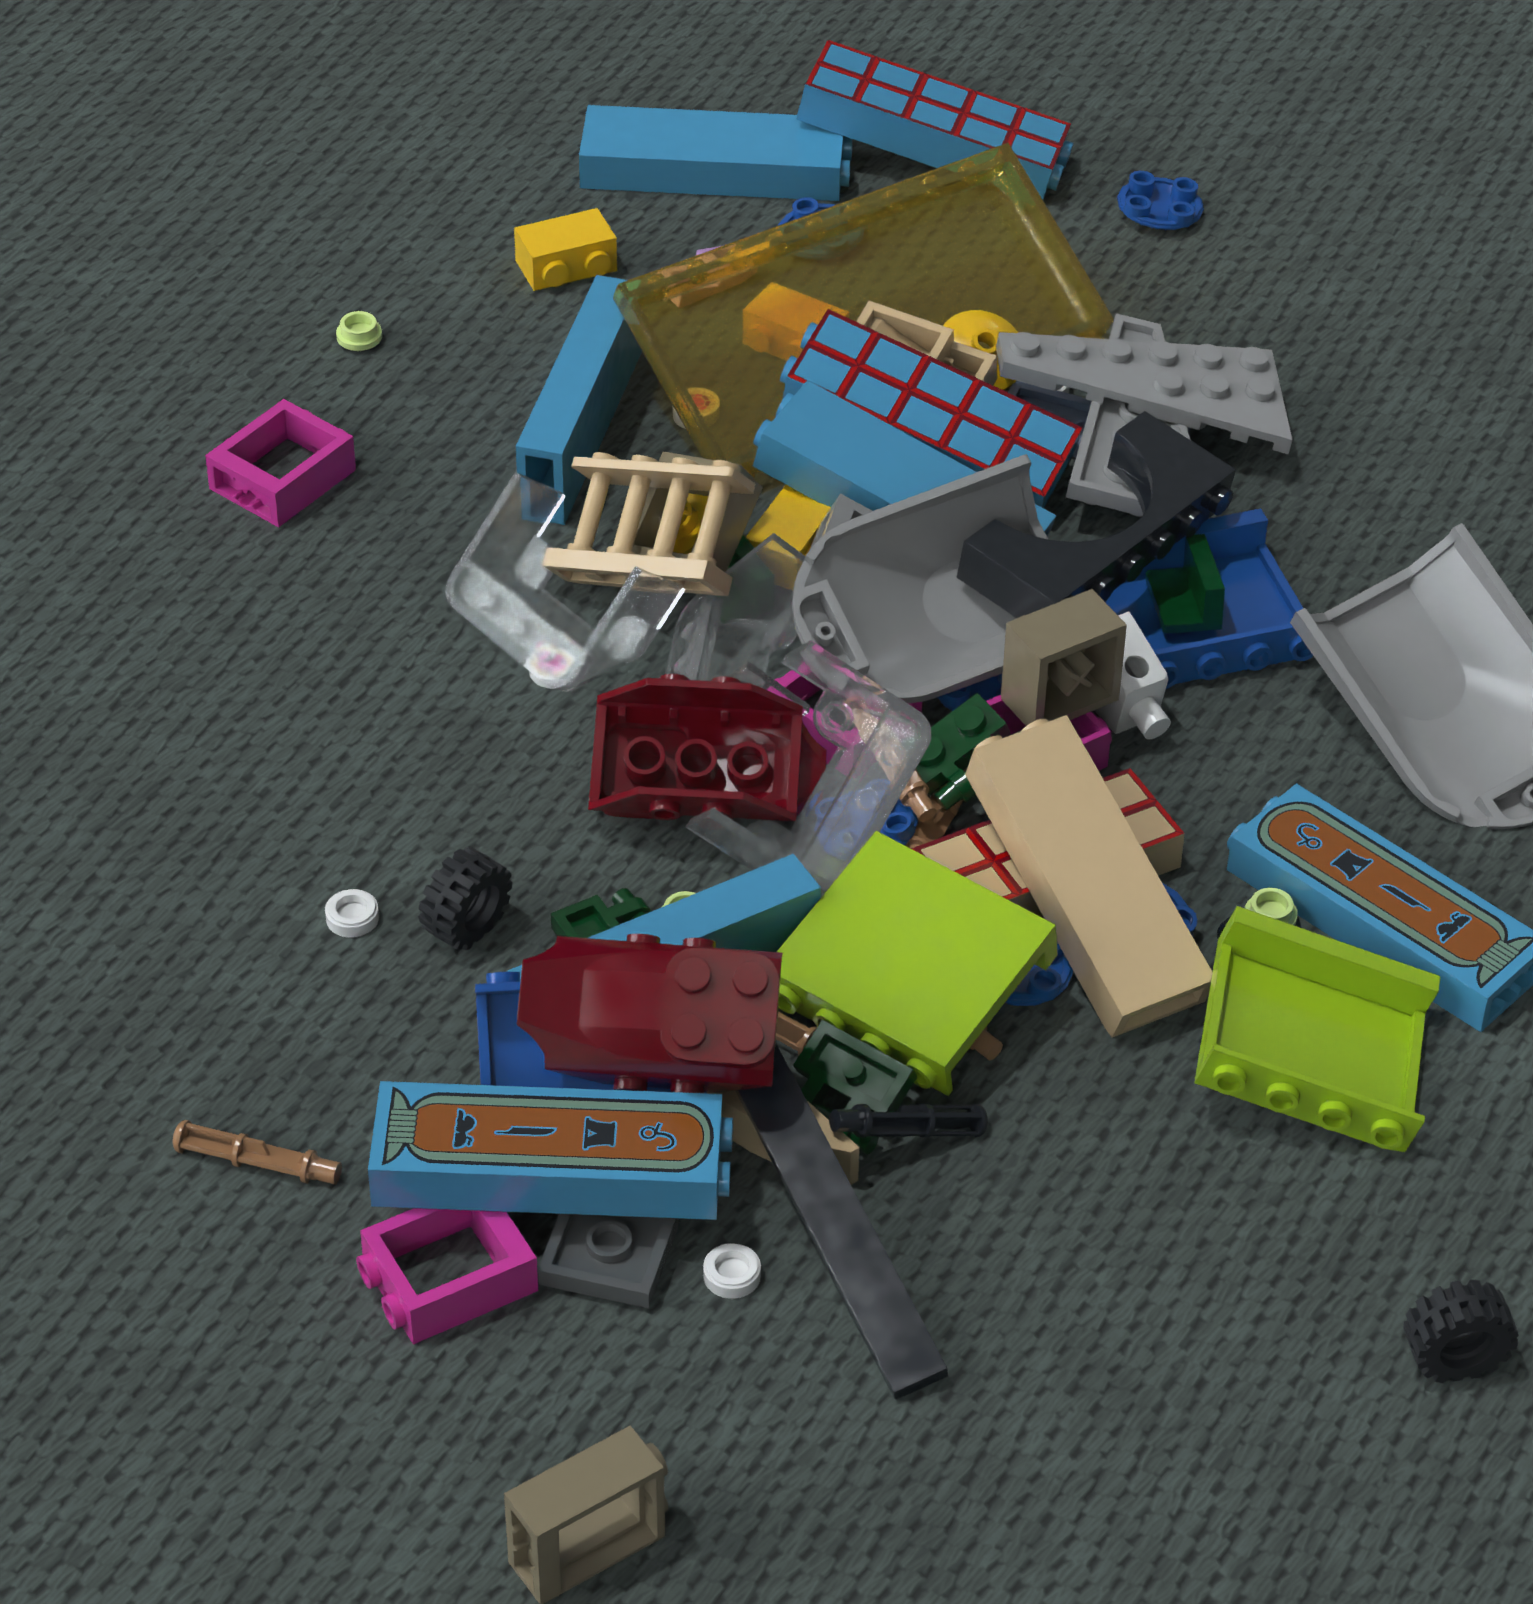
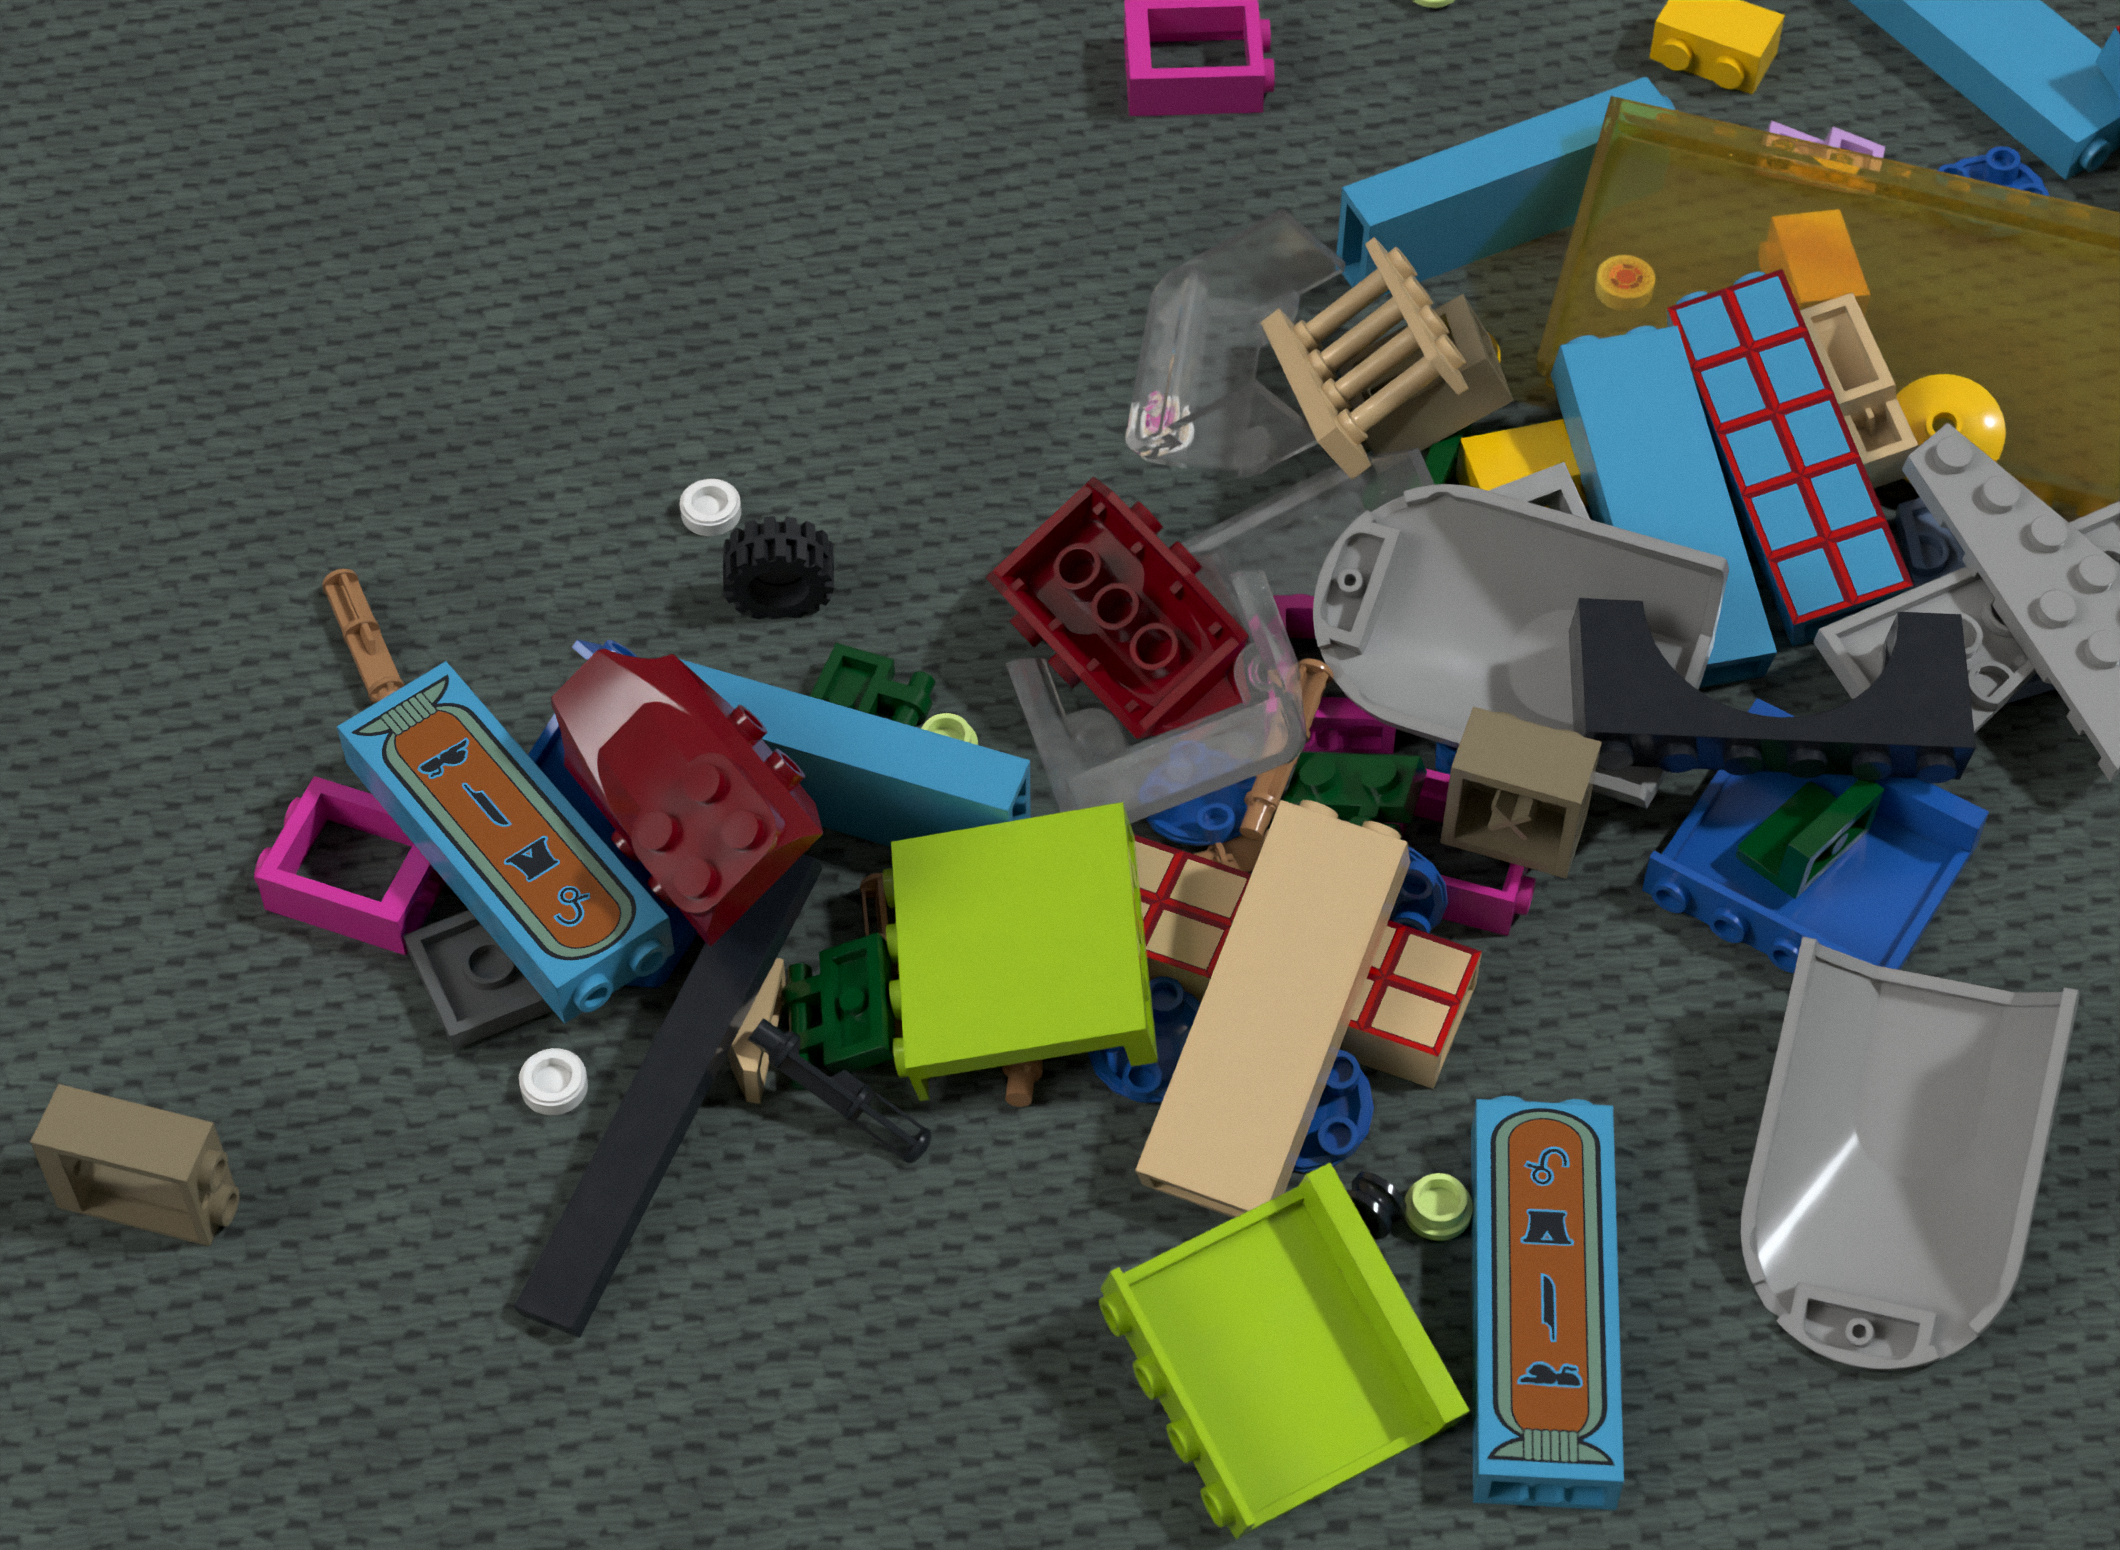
camera: 50 degrees right, 10 degrees up
(1141, 688) = (1608, 862): white torso -> none

